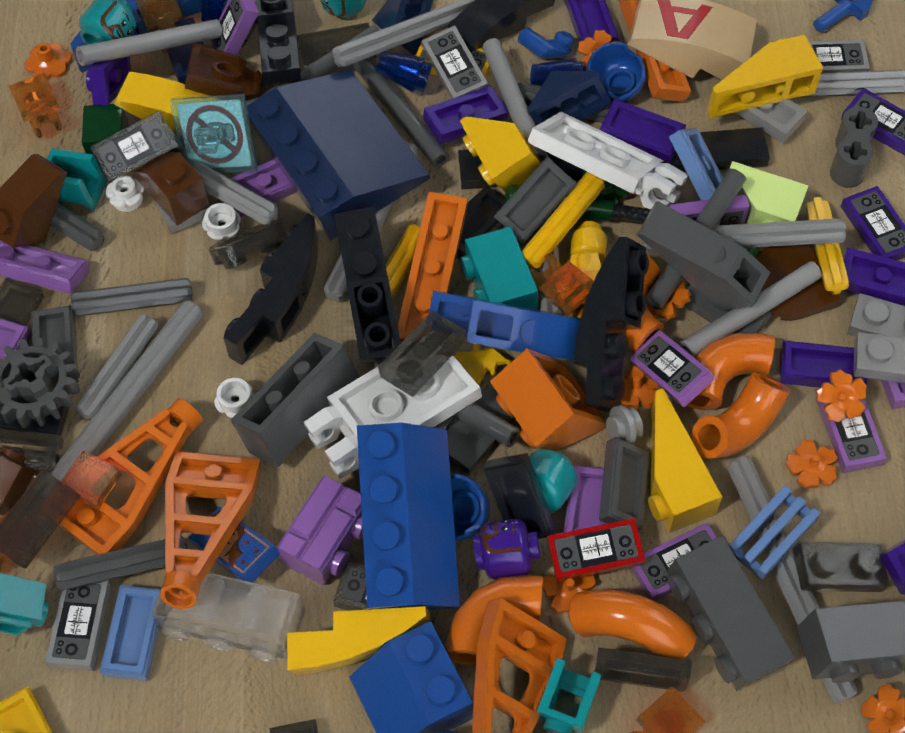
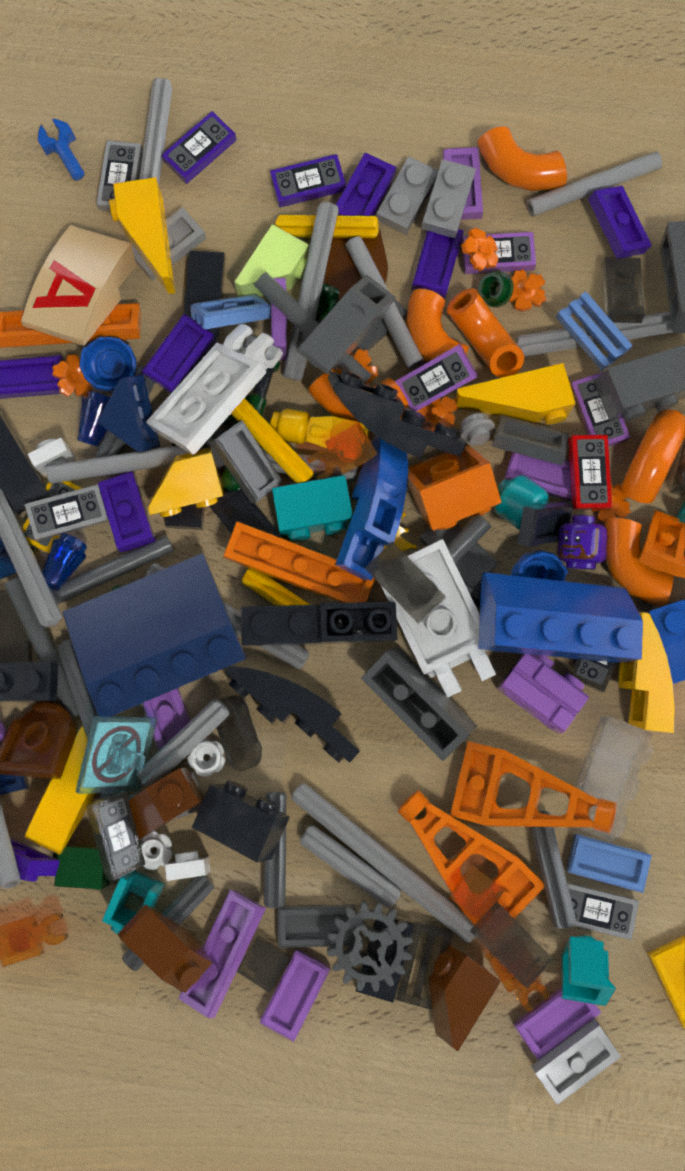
camera: 80 degrees left, 20 degrees up
(109, 218) = (187, 866): none -> white plate
(155, 251) = (241, 821): none -> black brick
(230, 389) = (403, 749): white plate -> none
(244, 554) = (559, 758): blue tile -> none
(514, 45) = (50, 453): none -> white plate
(546, 49) = (56, 421): blue arm -> none
(802, 425) = (488, 287): none -> dark green plate
(853, 147) = (227, 178): dark grey axle -> none

